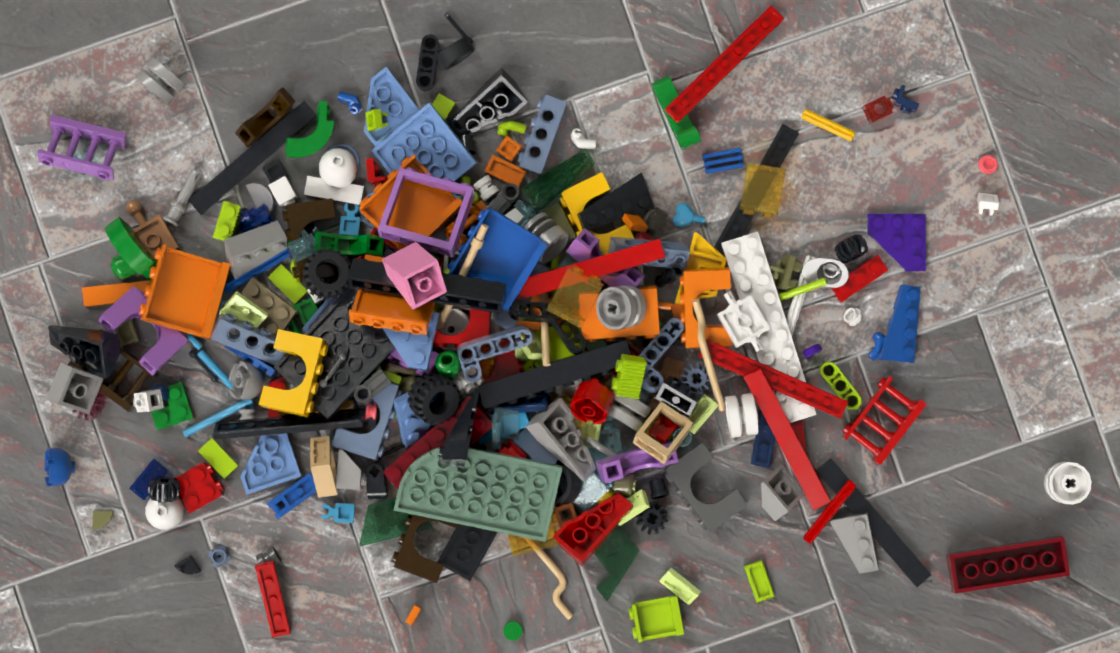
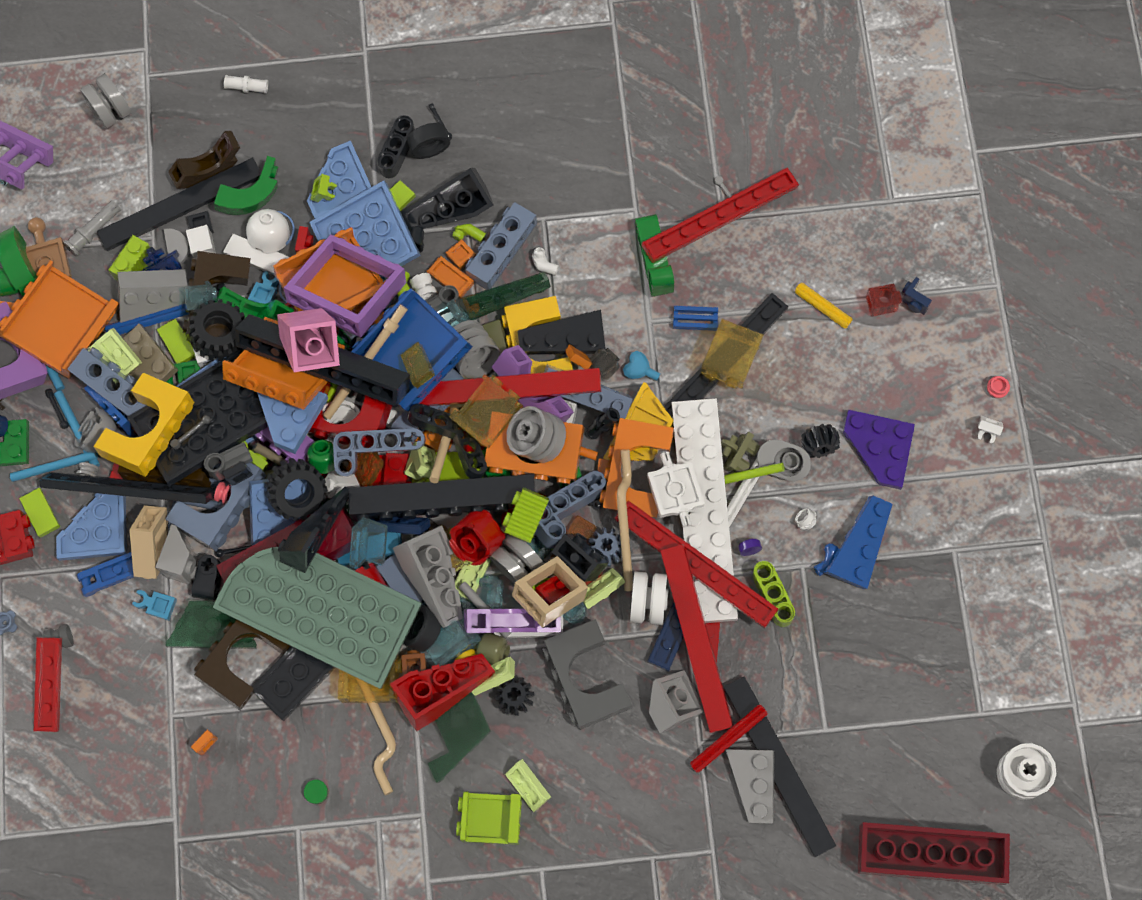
camera: 20 degrees right, 15 degrees down
(277, 32) = (245, 84): none -> white pin
(352, 101) = (304, 168): blue arm -> none
(383, 396) = (237, 473): none -> black tile
(508, 272) = (417, 365): none -> clear yellow tile
(658, 489) = (531, 664): black piece -> none
(759, 581) = (625, 803): lime tile -> none
(860, 278) = (823, 479): red plate -> none
(902, 422) = (839, 654): red fence -> none

